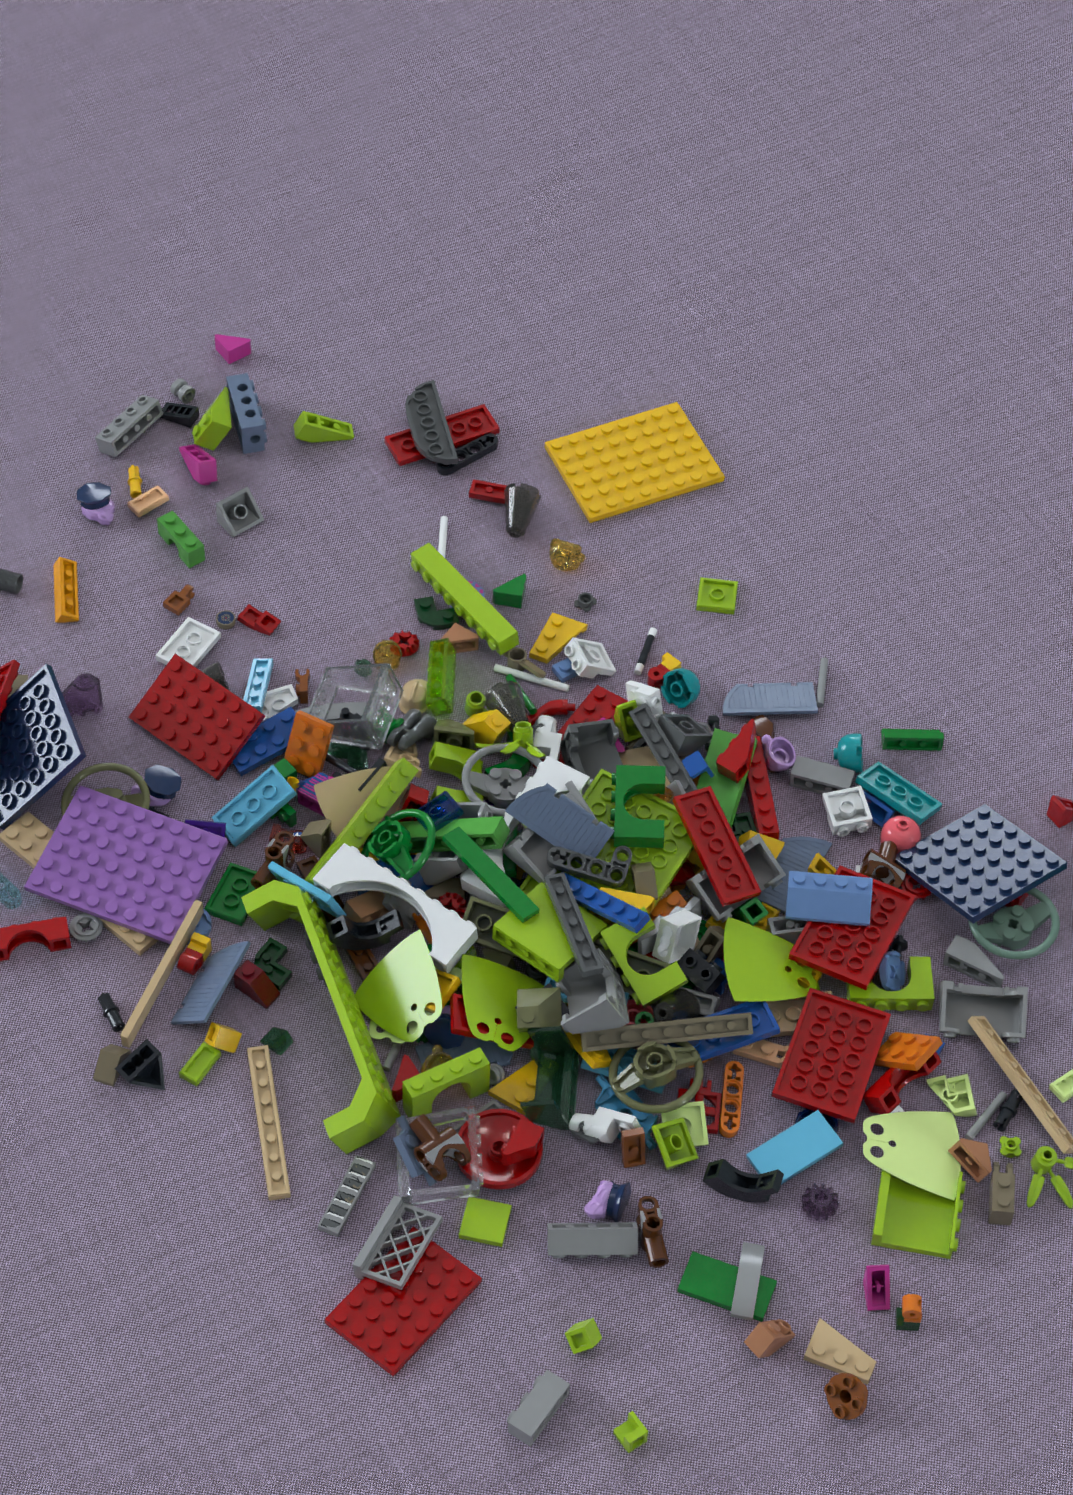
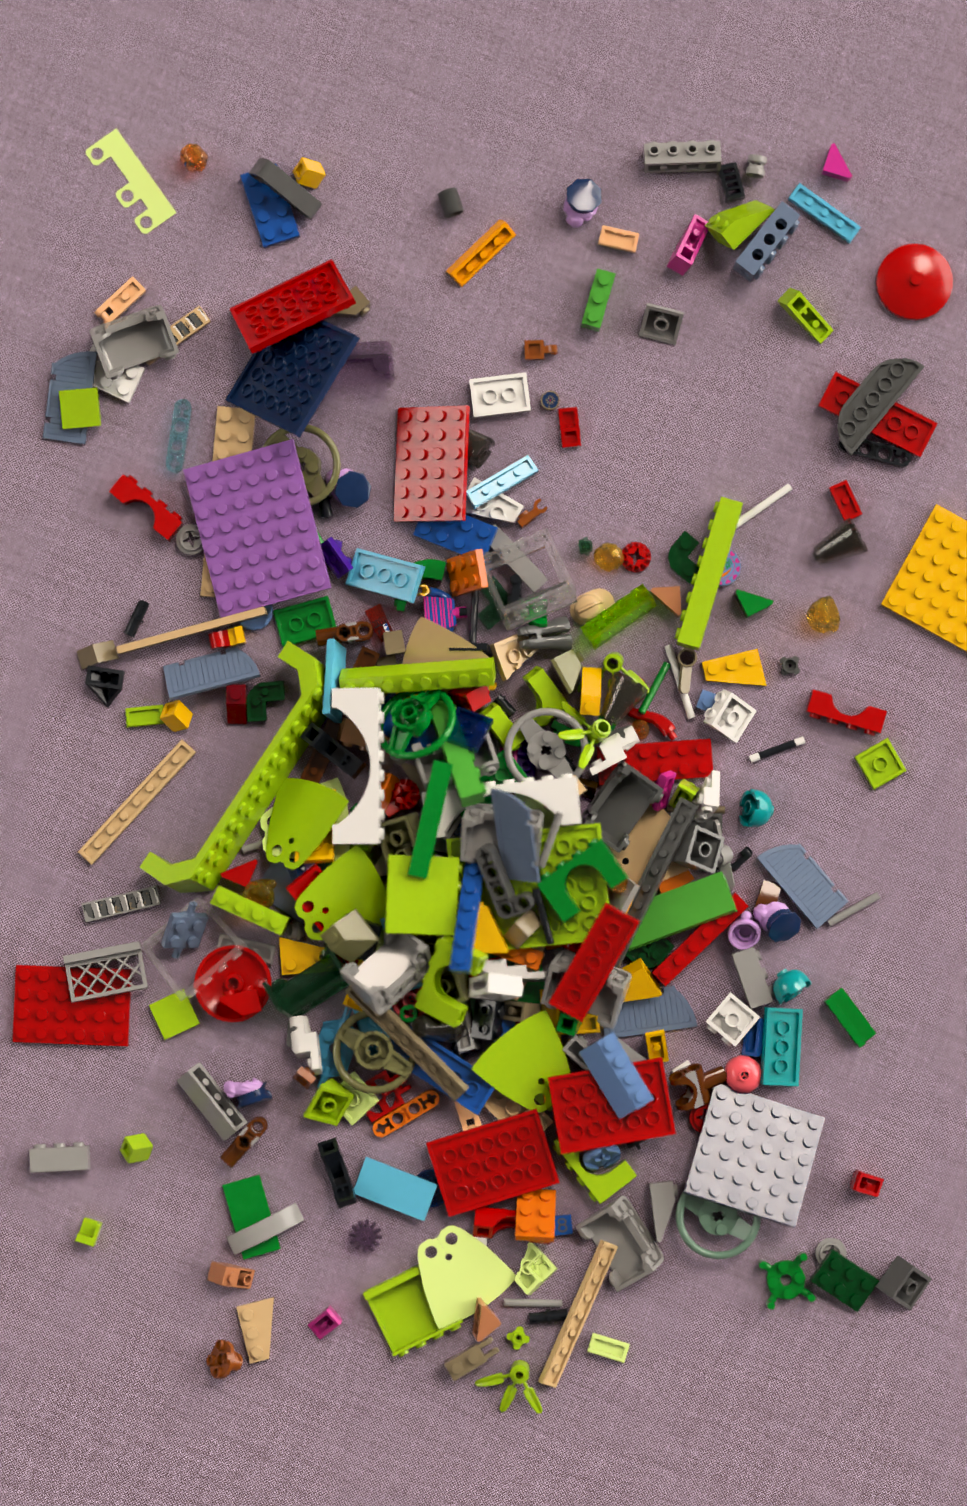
camera: 55 degrees right, 35 degrees up
(134, 481) = (631, 210): yellow axle -> none
(269, 375) = (824, 213): none -> medium azure tile
(277, 1040) = (206, 753): clear green slope -> none
(364, 359) = (914, 282): none -> red dish
(436, 1146) = (190, 946): reddish brown connector -> none
(573, 925) = (431, 914): dark grey plate -> none
(638, 599) = (822, 705): none -> red arch
(646, 856) = (543, 915): none -> black bar
(656, 674) = (763, 782): red leg -> none
(696, 765) = (671, 886): blue panel -> none
(737, 757) = (704, 911): red slope -> none
(791, 725) = (777, 920): none -> dark blue piece
(910, 1314) = (320, 1358): orange leg -> none

